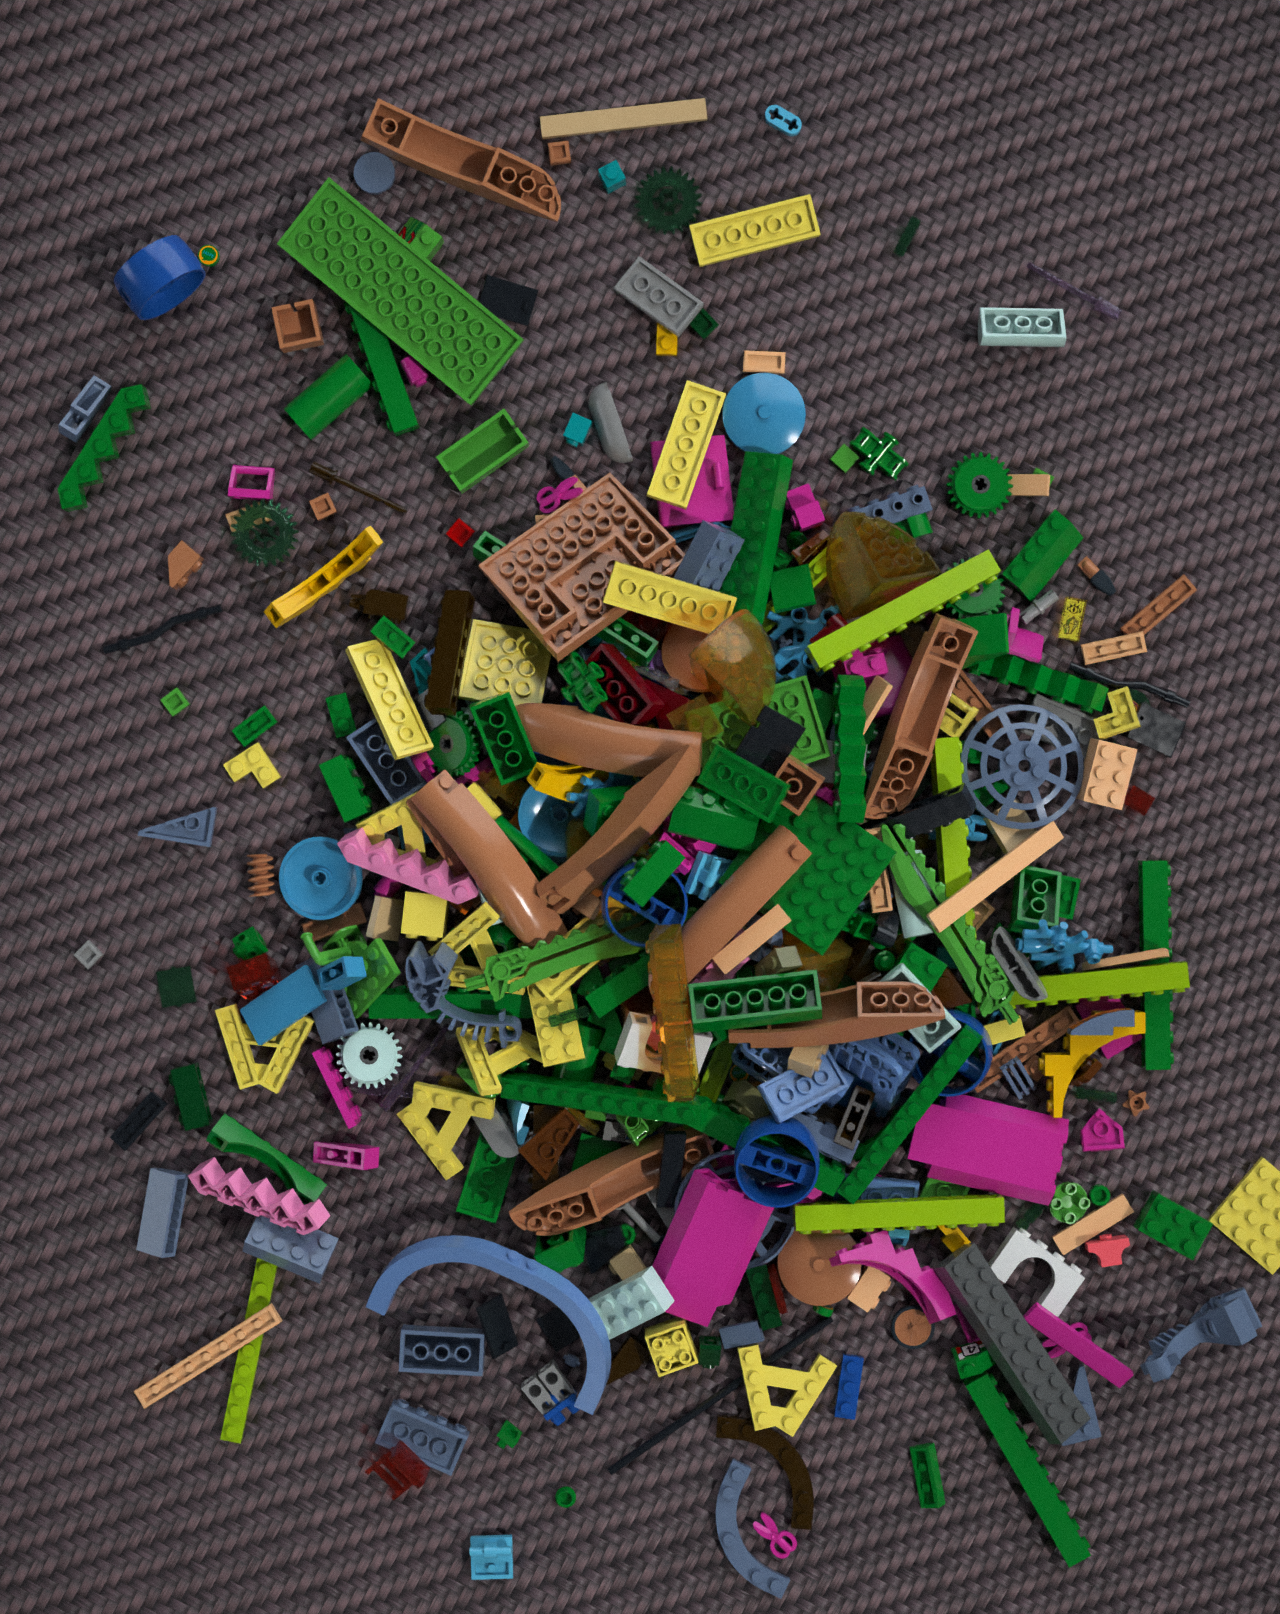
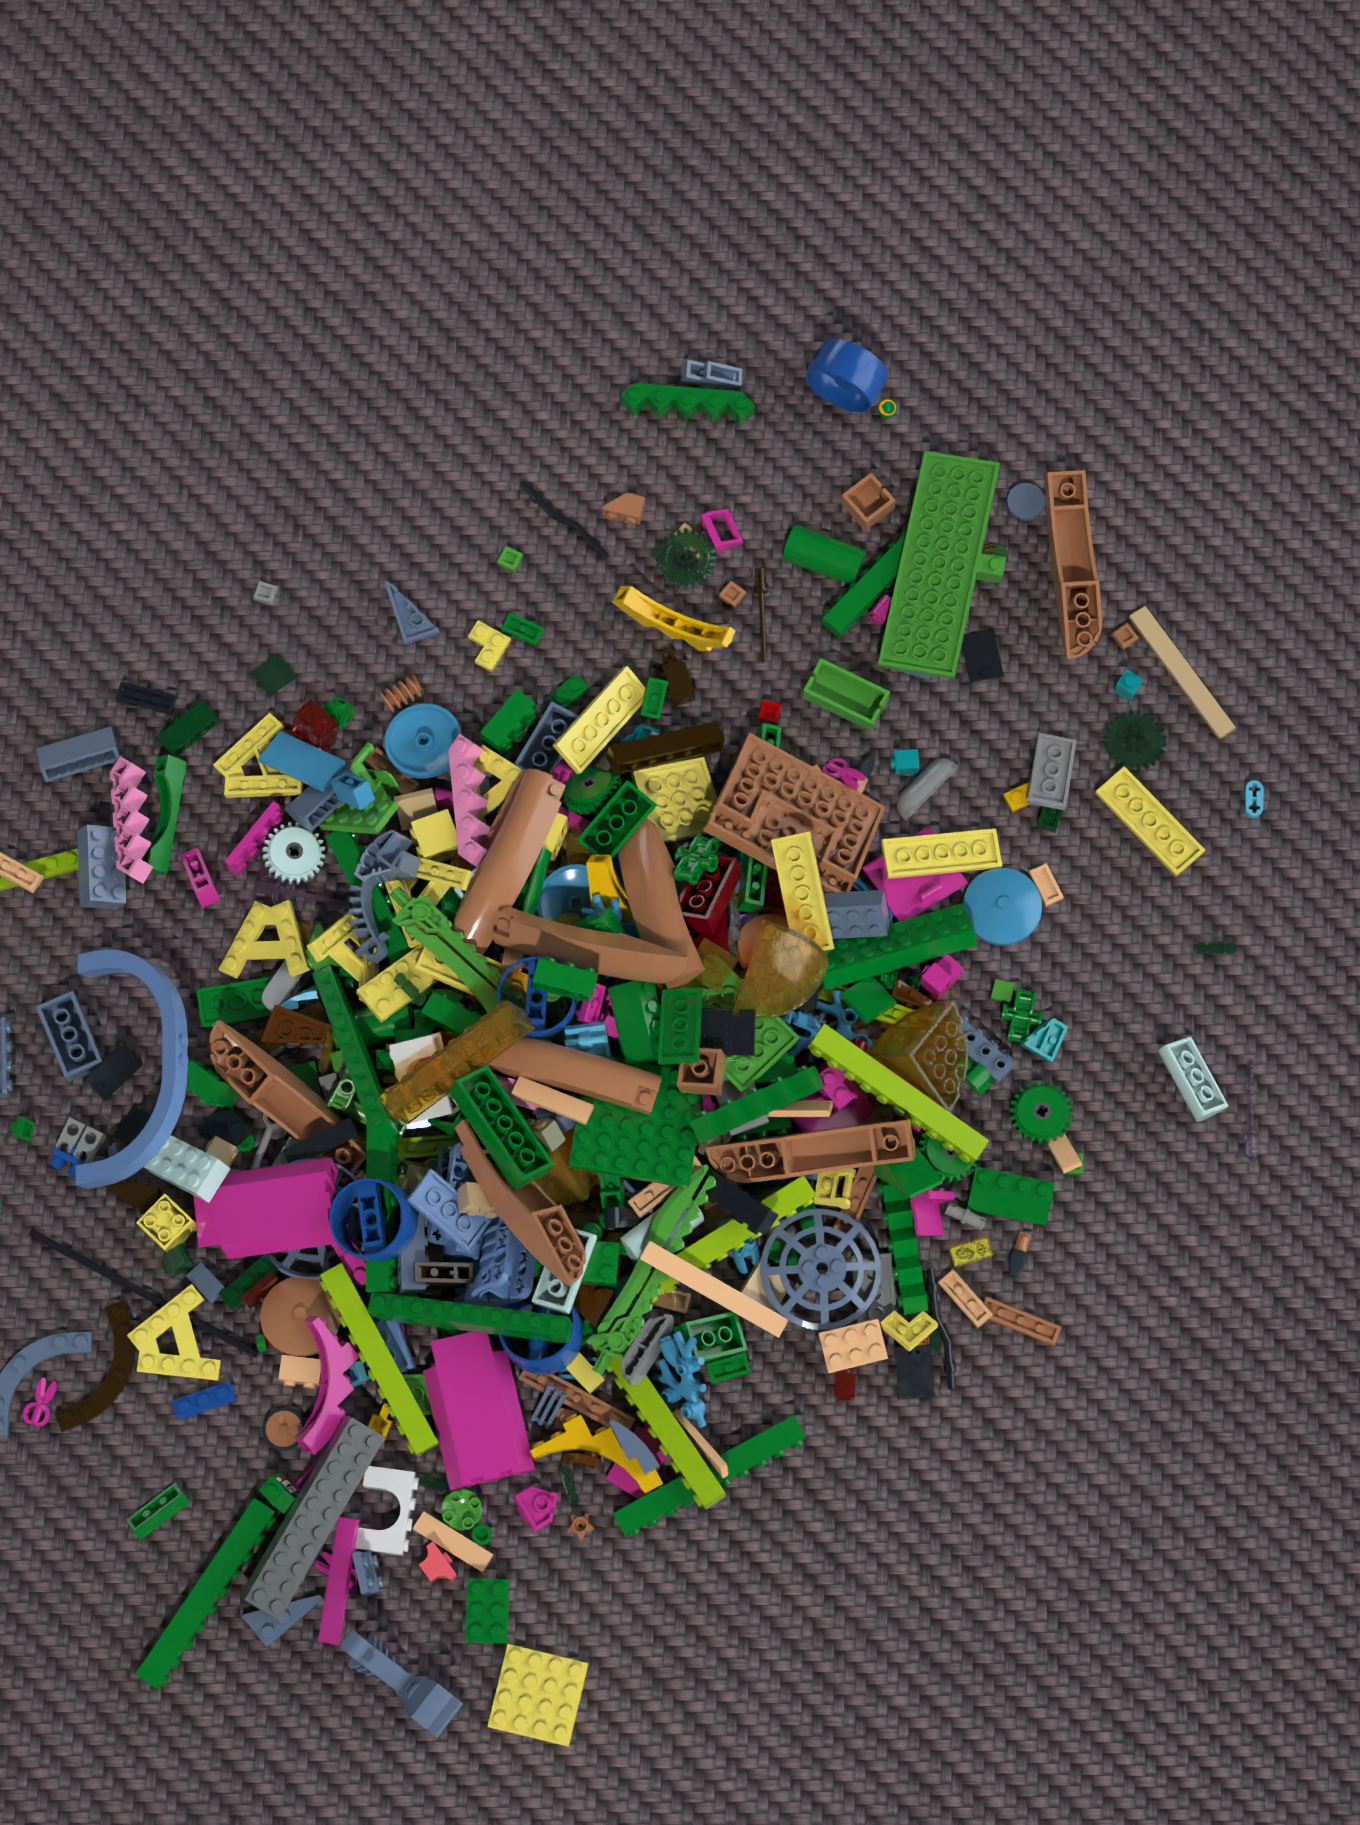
camera: 65 degrees right, 15 degrees down
(913, 442) = (1046, 1039): none -> teal wing
(1086, 1318) = (365, 1567): none -> sand blue plate

